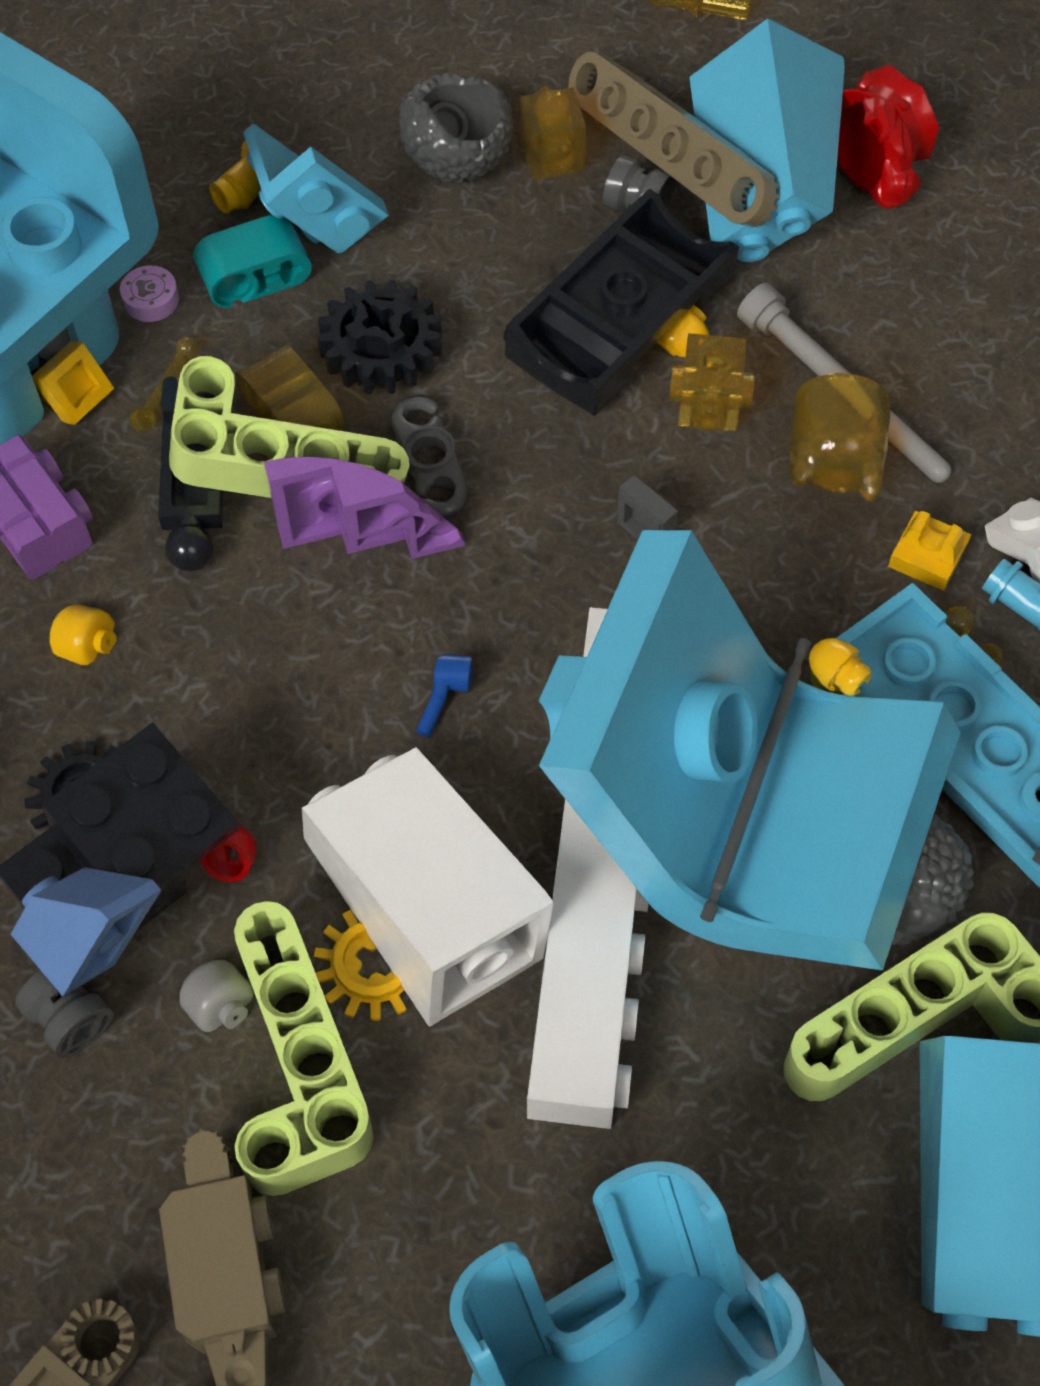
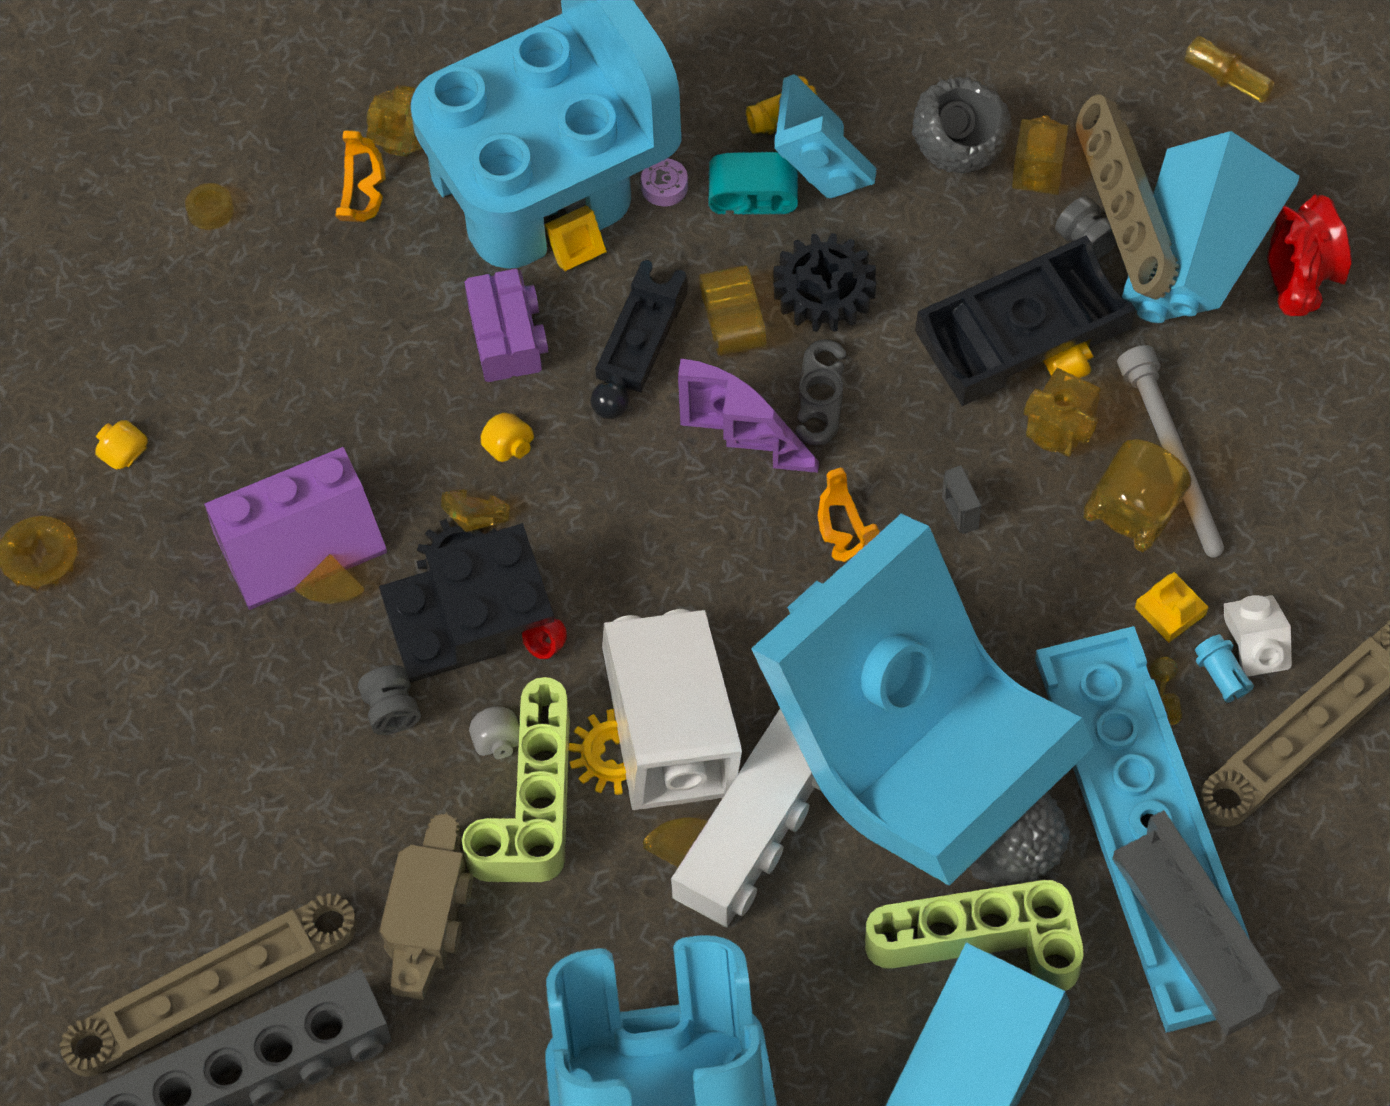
camera: 25 degrees right, 0 degrees up
(78, 735) = (474, 512): none -> clear yellow tile
(82, 923) = (421, 645): medium blue slope -> none
(144, 418) = (619, 284): clear yellow hinge -> none
(236, 435) = (712, 348): yellowish green beam -> none
(450, 674) = (758, 566): blue hand -> none
(503, 560) = (838, 494): none -> light orange helmet
(504, 1042) = (674, 839): none -> clear yellow tile
(755, 781) = (927, 721): dark grey piece -> none
(837, 667) = (1030, 666): yellow arm -> none

